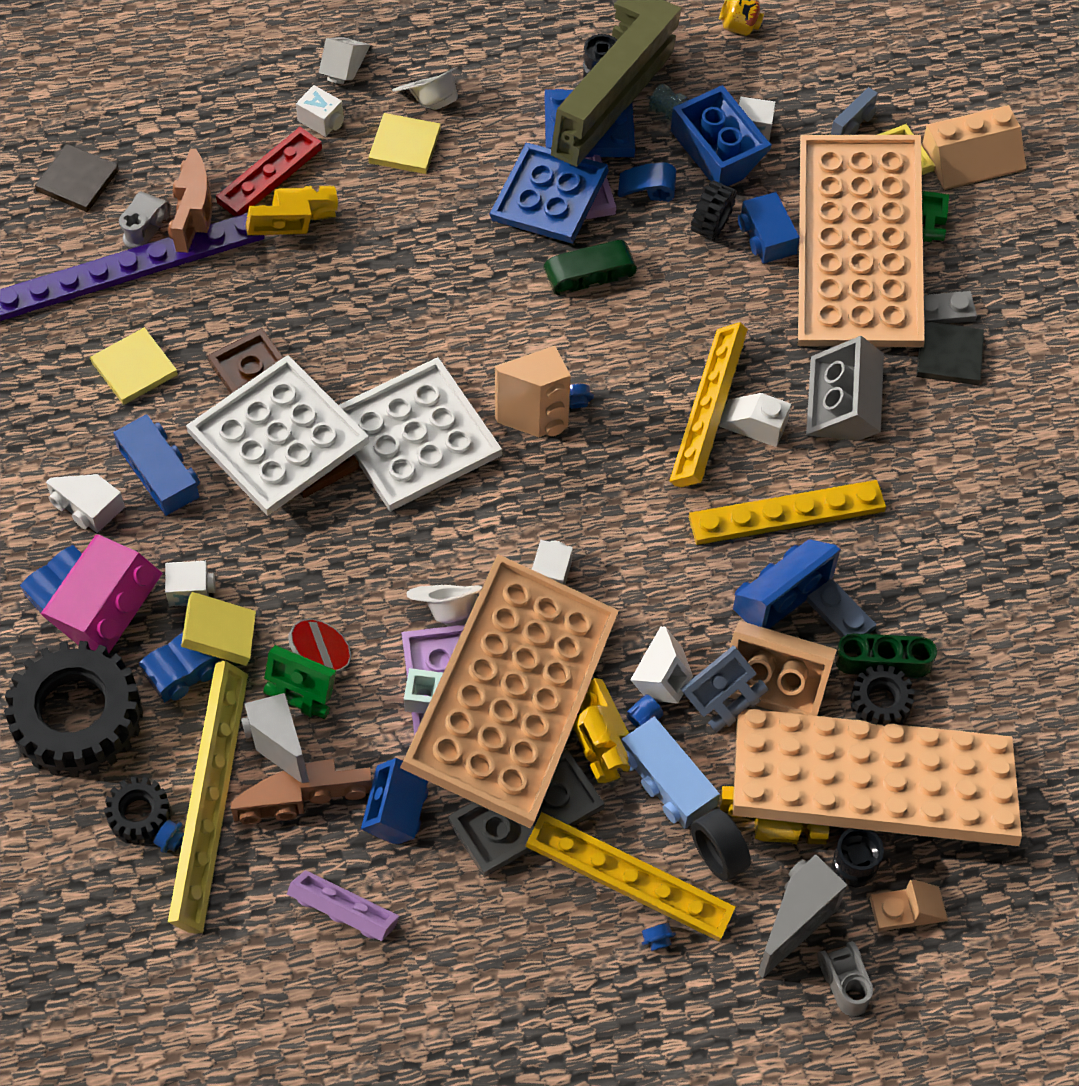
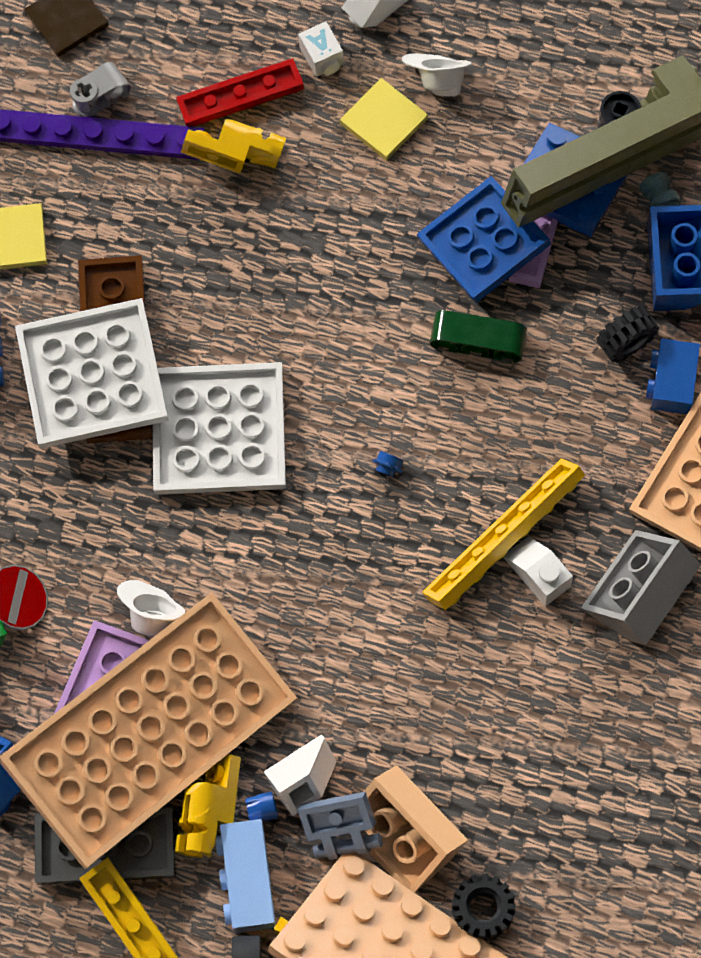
camera: 35 degrees right, 10 degrees up
(193, 204) = (154, 92): nougat slope -> none
(420, 684) = (66, 683): light aqua plate -> none
(533, 393) = (336, 448): light nougat slope -> none
(553, 560) = (263, 622): white brick -> none
(656, 178) = (594, 270): blue panel -> none
(786, 512) = (513, 678): yellow plate -> none
(786, 584) = (460, 751): blue slope -> none
(840, 610) = (500, 803): sand blue plate -> none
(899, 648) = (504, 853): dark green beam -> none

